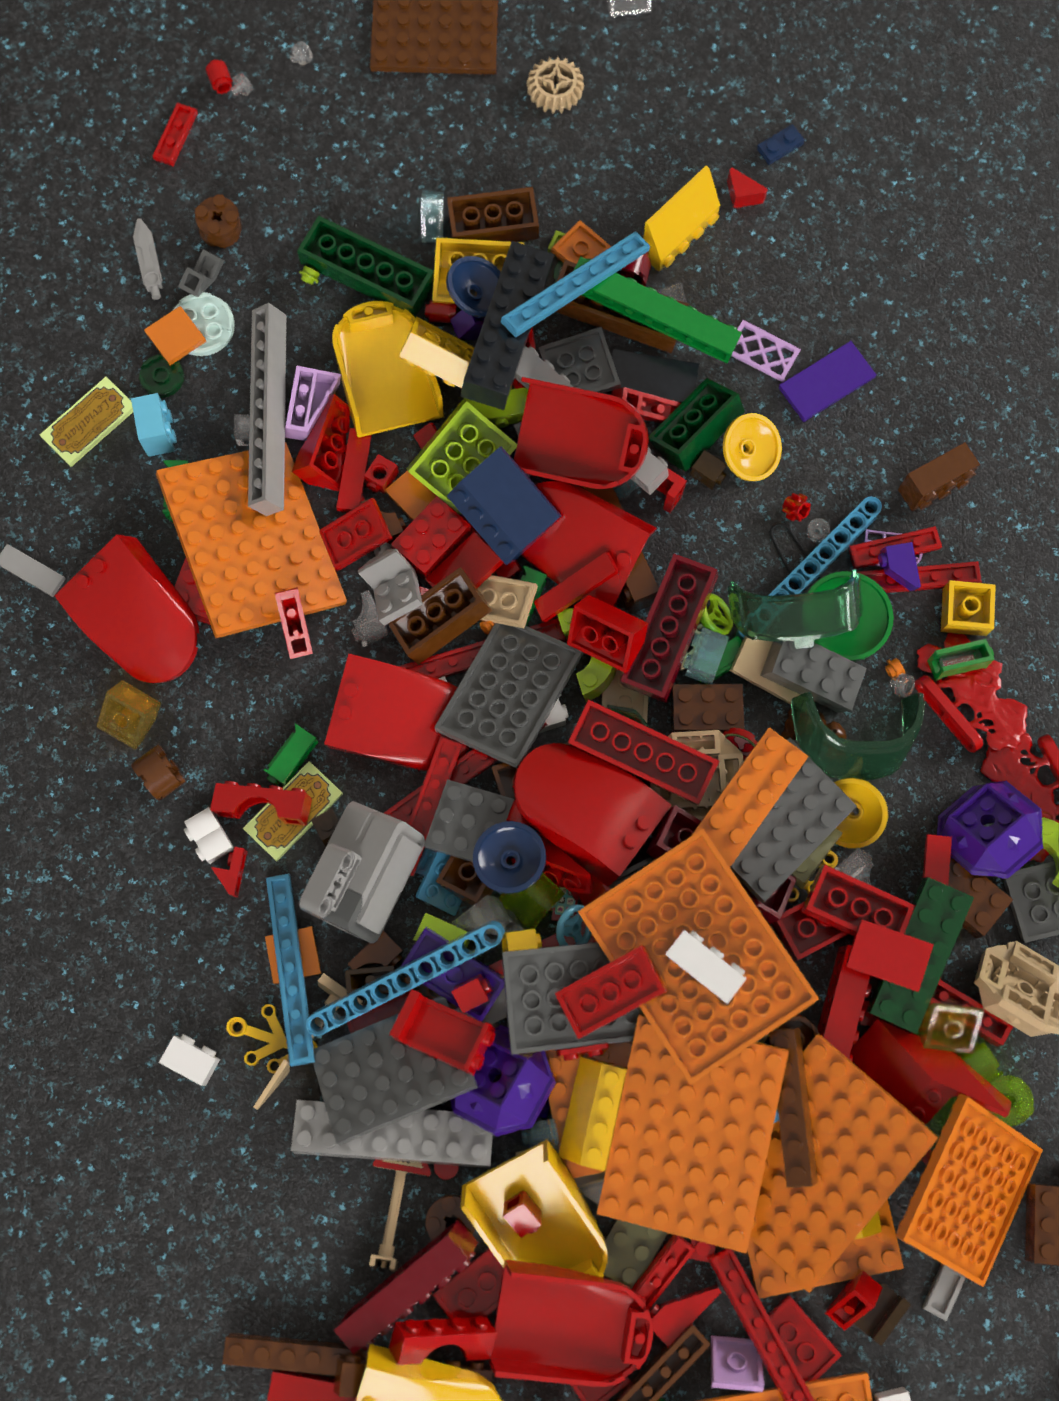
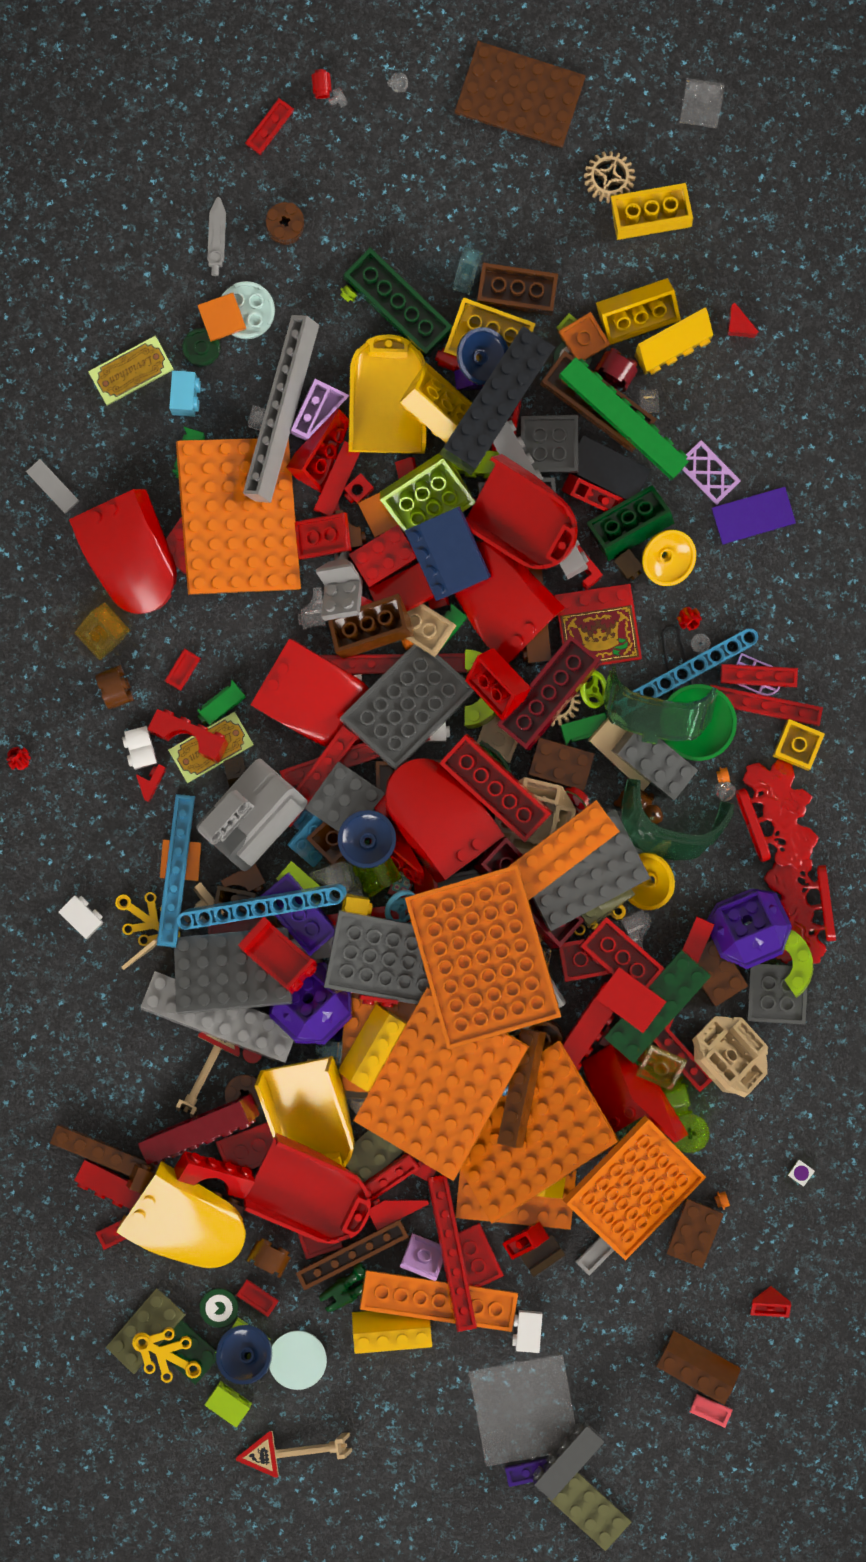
camera: 15 degrees right, 10 degrees up
(64, 890) = (18, 758): none -> red gear
(203, 275) = (258, 267): dark grey slope -> none
(235, 731) = (182, 669): none -> red tile
(293, 623) = (252, 600): slope -> none
(472, 992) = (309, 932): red brick -> none
(522, 1214) = (298, 1104): red brick -> none
(575, 284) = (563, 383): dark azure tile -> none
(576, 586) = (485, 637): red tile -> none
(611, 992) = (410, 964): red plate -> none
(612, 103) = (651, 211): none -> yellow slope
(629, 205) = (638, 311): none -> yellow slope
(704, 534) = (602, 622): none -> plate
(706, 655) = (572, 723): clear light blue brick -> none
(706, 965) = (485, 967): white brick -> none
(780, 144) = (787, 288): dark blue plate -> none
(900, 564) = (755, 692): dark purple slope -> none
(939, 477) = (813, 629): reddish brown brick -> none
(960, 659) = (777, 784): green window -> none

